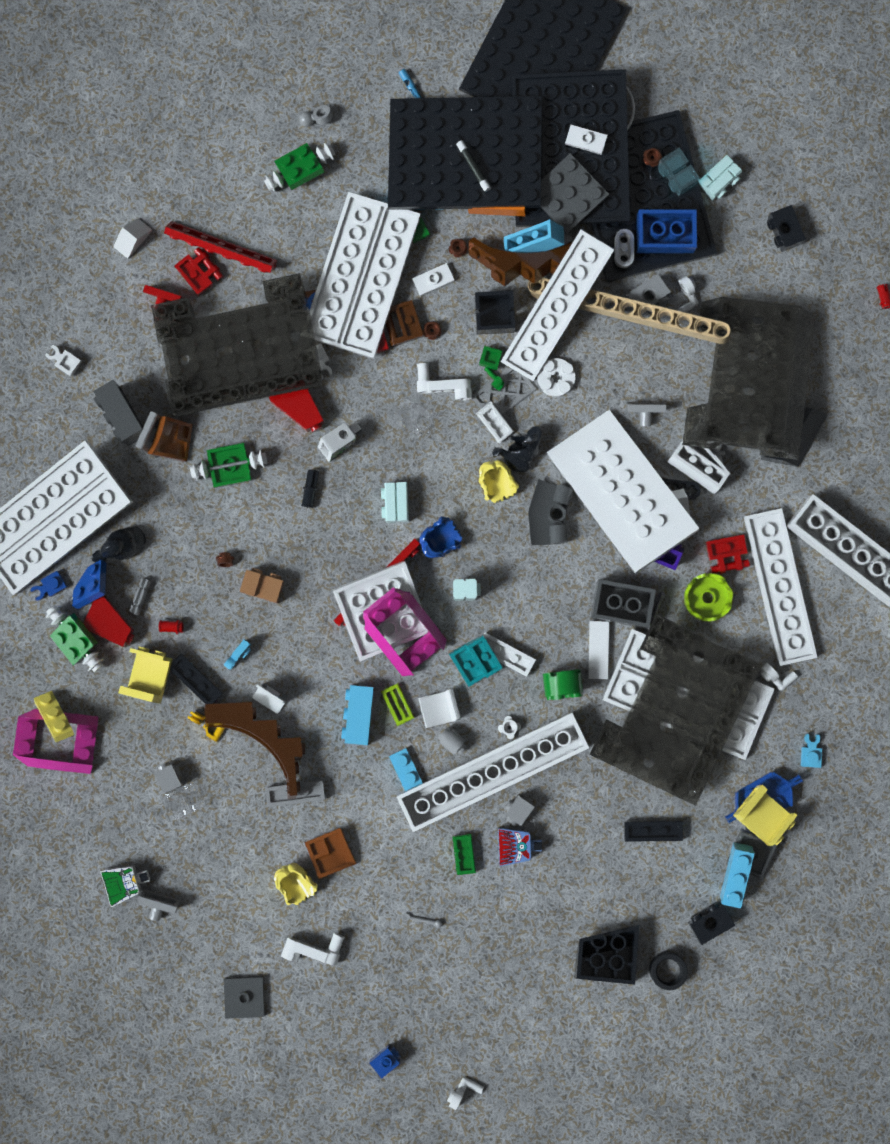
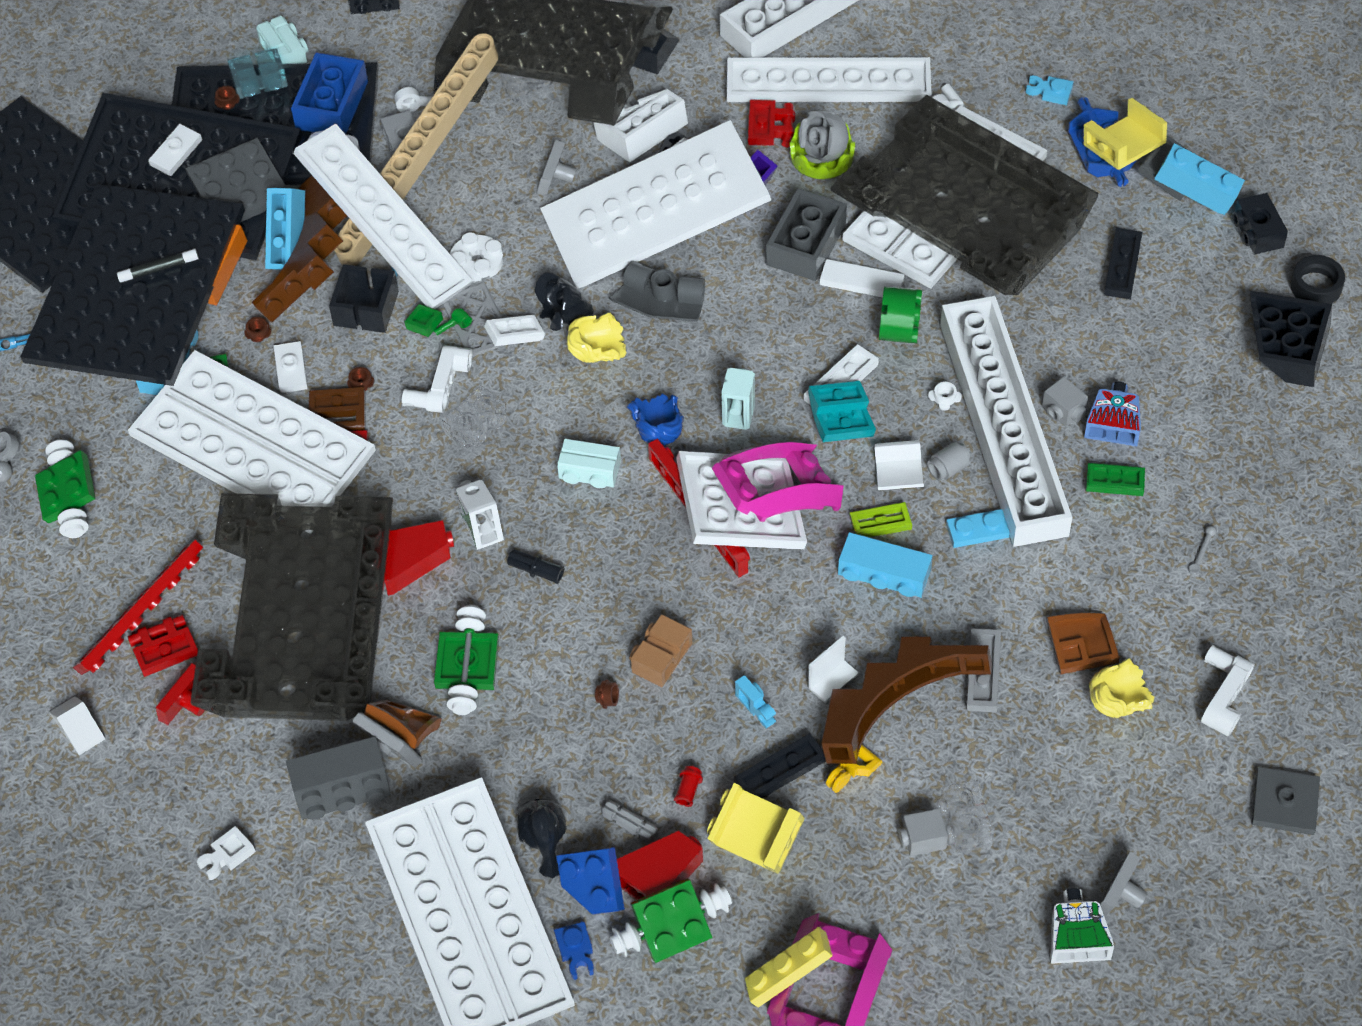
camera: 70 degrees left, 30 degrees down
(709, 598) = (823, 136): none -> light grey cylinder

